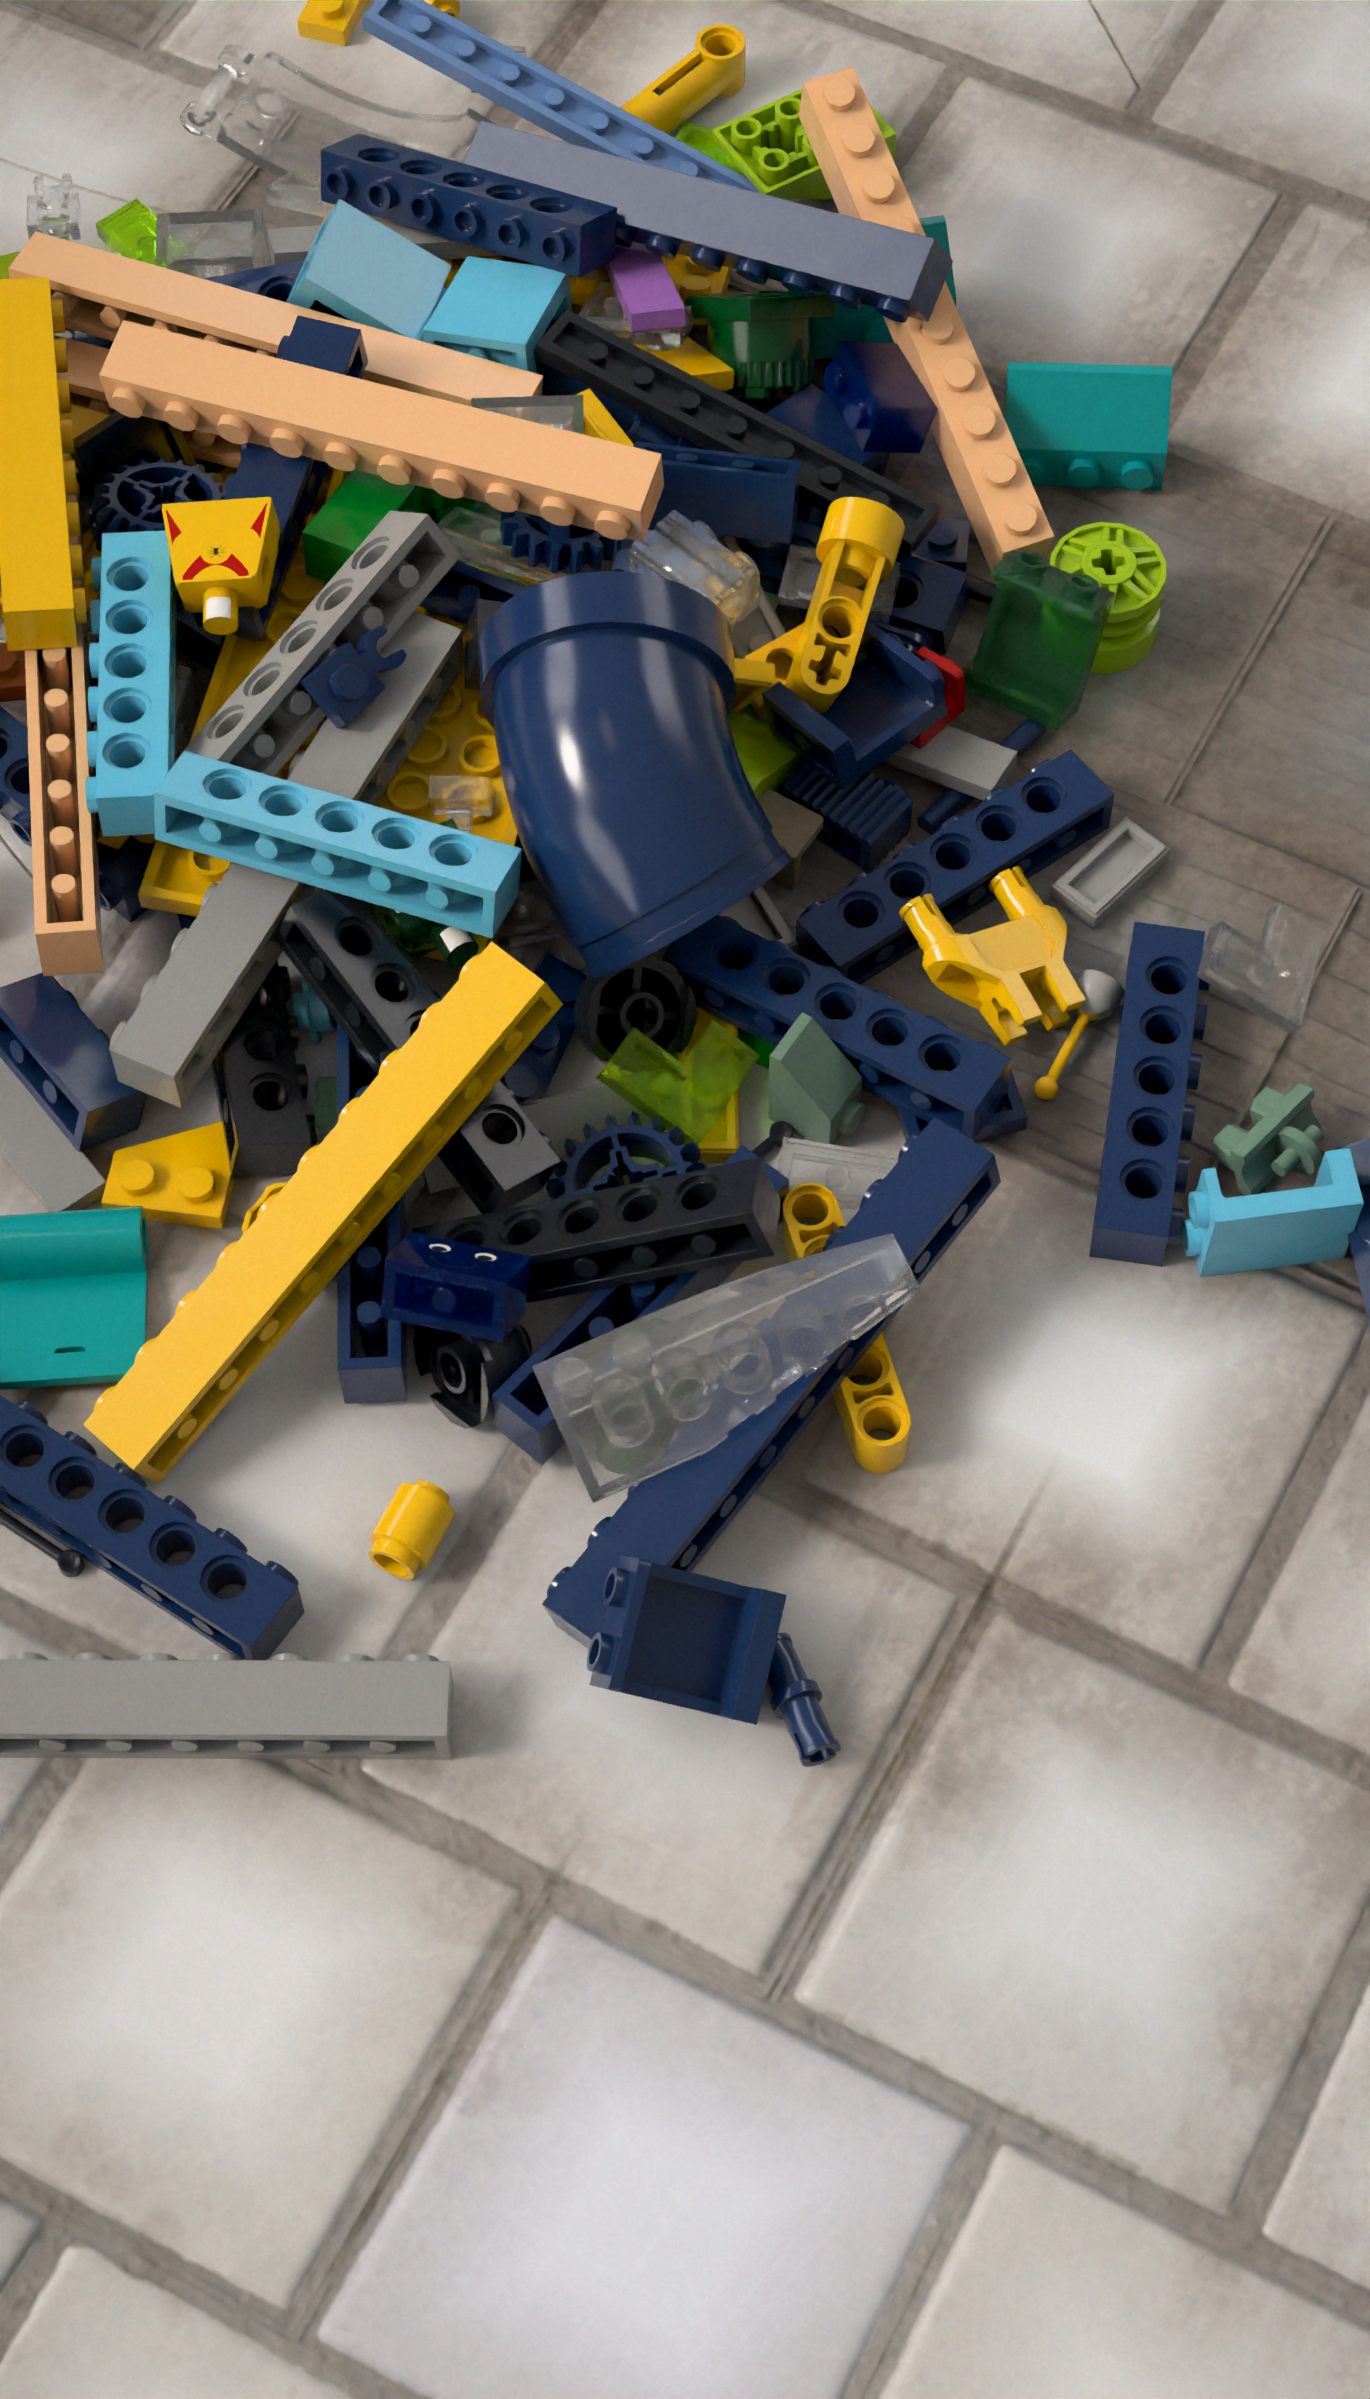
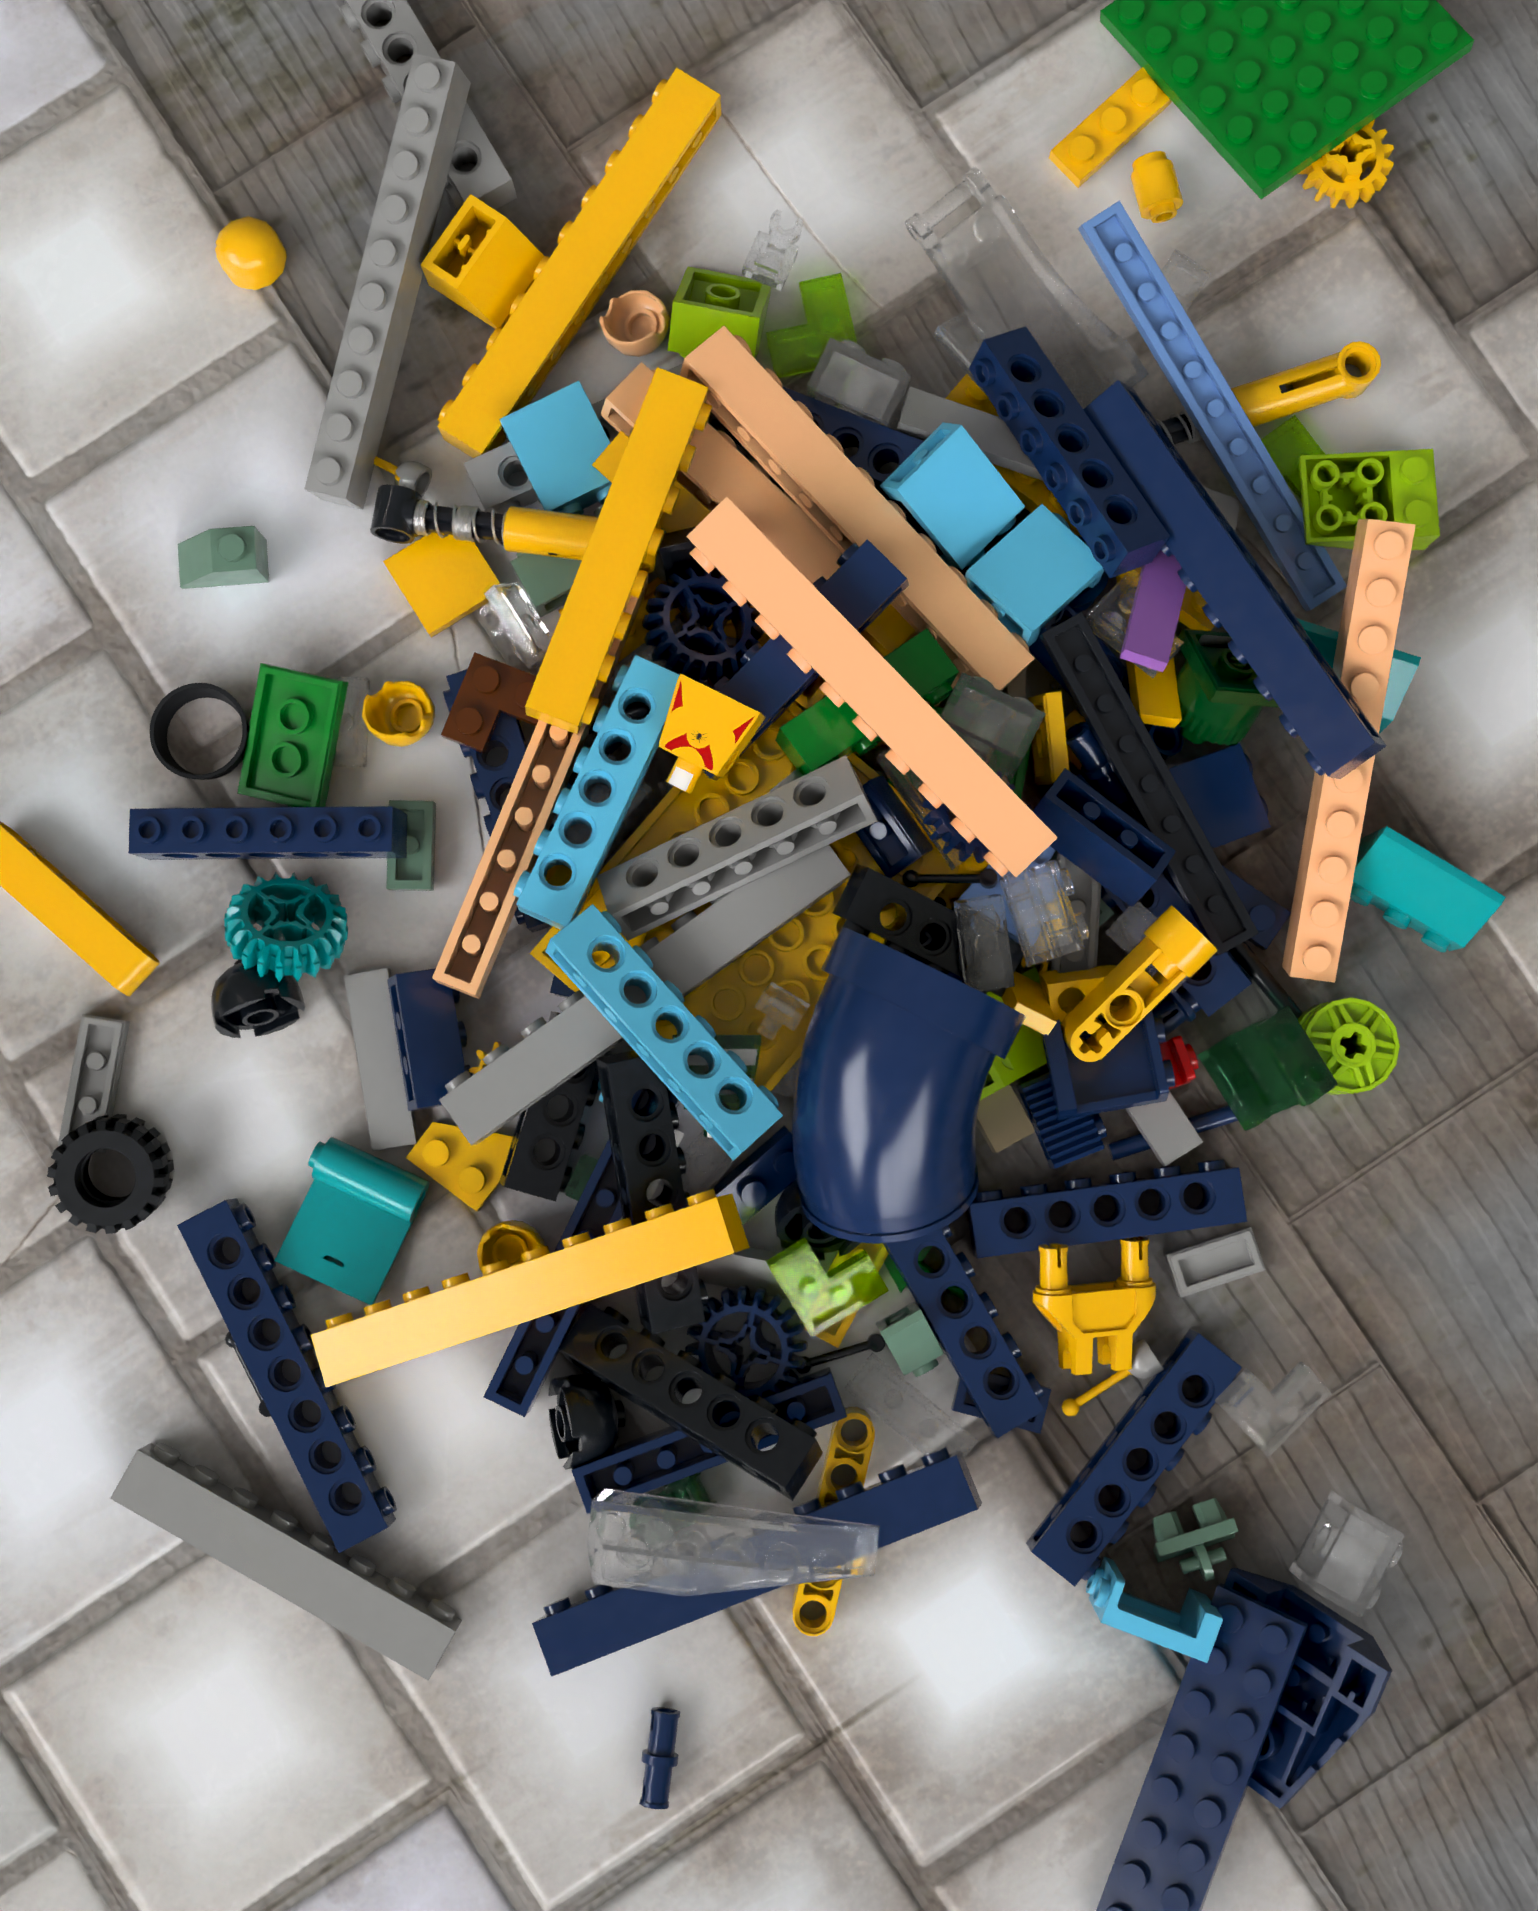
camera: 30 degrees right, 25 degrees up
(348, 677) = (742, 889): dark blue plate -> none
(411, 1529) = (483, 1511): yellow brick -> none
(455, 1286) = (579, 1399): clear blue brick -> none
(685, 1639) = (608, 1701): dark blue panel -> none
(879, 397) = (1278, 792): clear blue brick -> none

